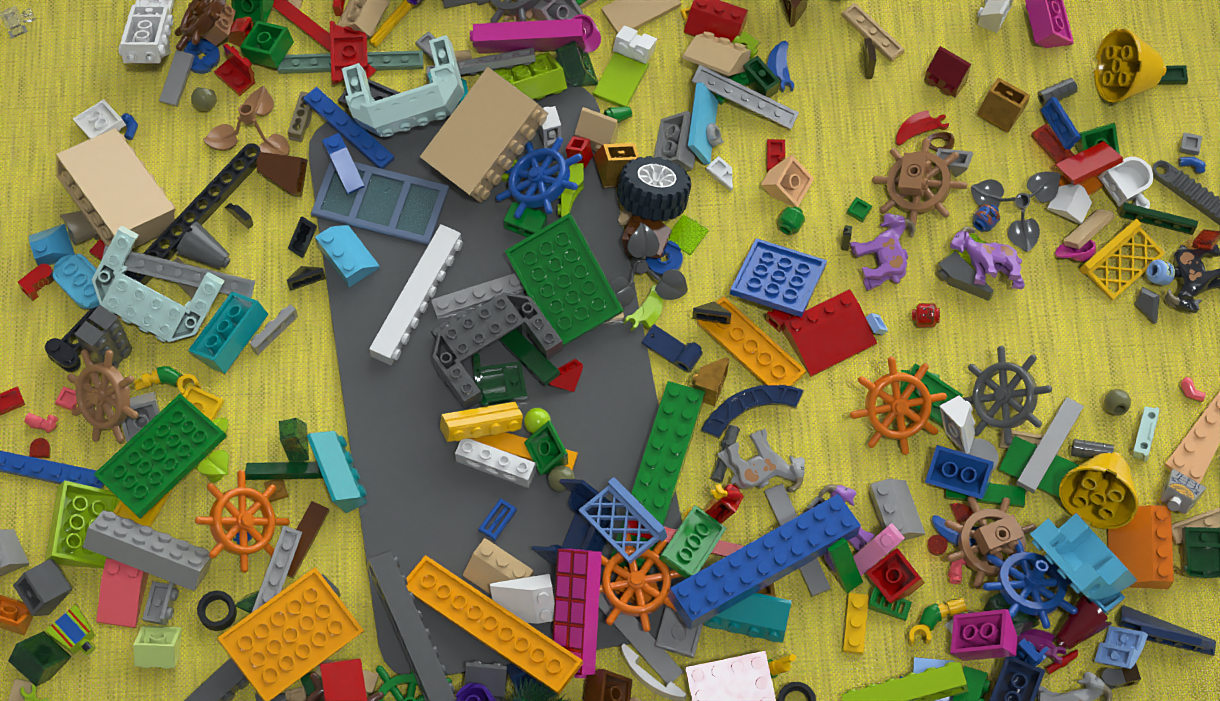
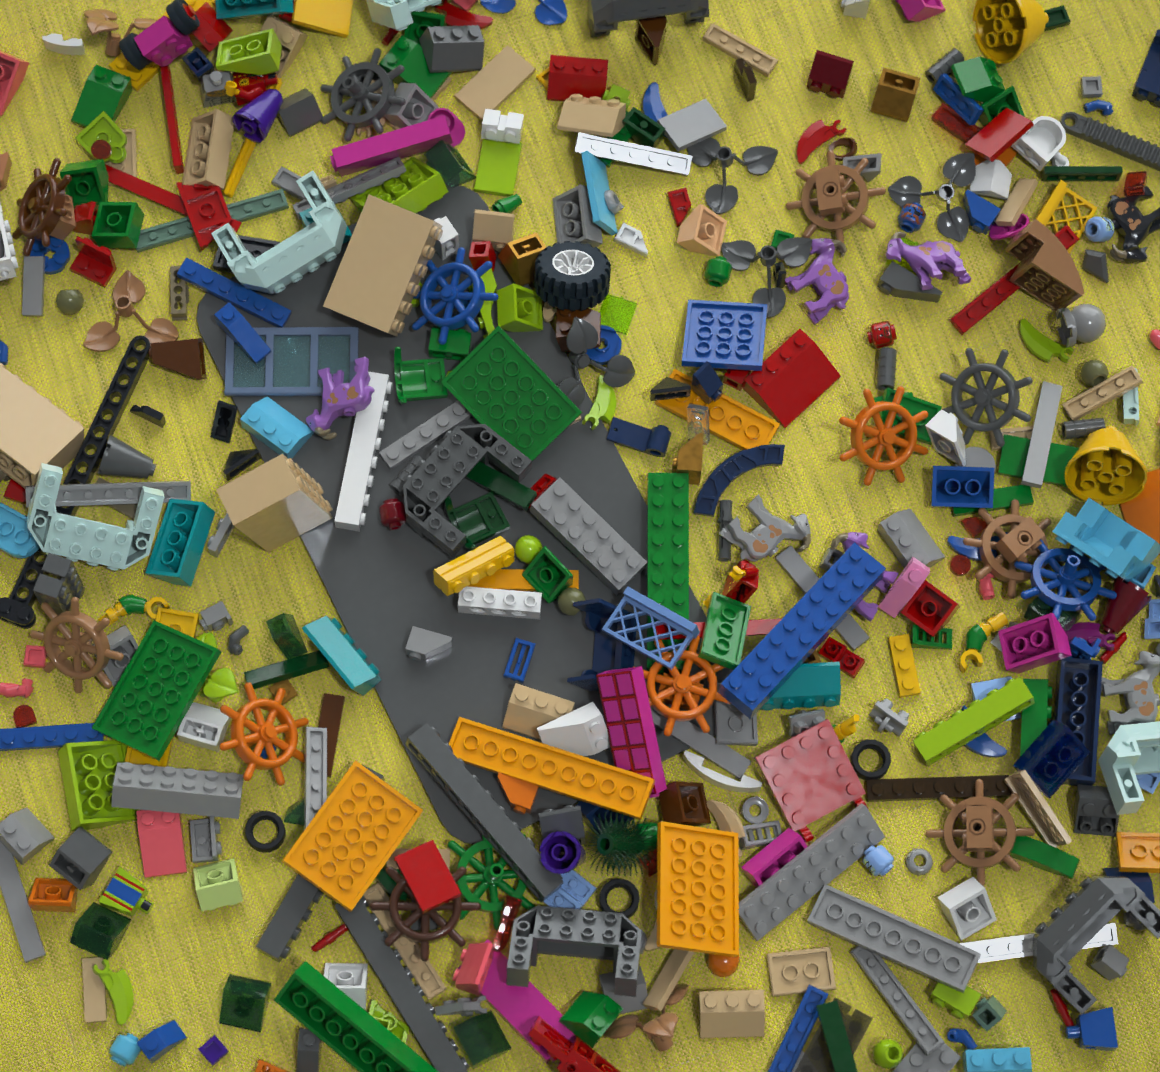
camera: 20 degrees left, 5 degrees up
(190, 499) = (203, 727): none -> white slope
(237, 406) = (215, 617): none -> light grey brick
(247, 432) = (234, 640): none -> dark grey arm
(316, 315) = (275, 503): none -> tan brick
(411, 241) = (341, 397): none -> medium lavender animal
(416, 481) = (426, 644): none -> light grey slope
(423, 357) = (392, 514): none -> dark red head
(457, 640) = (518, 793): none -> orange slope
(487, 244) = (418, 378): none -> green piece
(595, 423) = (588, 536): none -> light grey brick
(598, 206) = (519, 309): none -> lime slope
(729, 348) = (698, 422): none -> clear plate
(743, 646) = (804, 720): none -> light grey hips
(747, 315) = (707, 383): none -> dark blue slope
(801, 602) = (837, 652): none -> red slope
(807, 85) = (692, 125): none -> light grey tile
(813, 110) = (757, 159): none -> dark grey plant
(824, 668) = (889, 719): none -> light grey hips
(845, 565) = (879, 611): green tile -> none
(865, 219) = (793, 251): none -> dark grey plant
(876, 324) = (835, 356): light blue tile -> none
(921, 346) = (886, 368): none -> dark grey axle
(1052, 229) = (980, 212): none -> blue slope
(1066, 298) = (999, 291): none -> red tile
(1075, 364) = (1041, 345): none -> lime piece
(1084, 108) = (978, 78): none -> green slope
(1097, 291) = (1044, 267): none -> medium nougat slope
(1118, 353) = (1082, 324): none -> light grey tile
(1120, 422) = (1102, 393): none -> tan tile

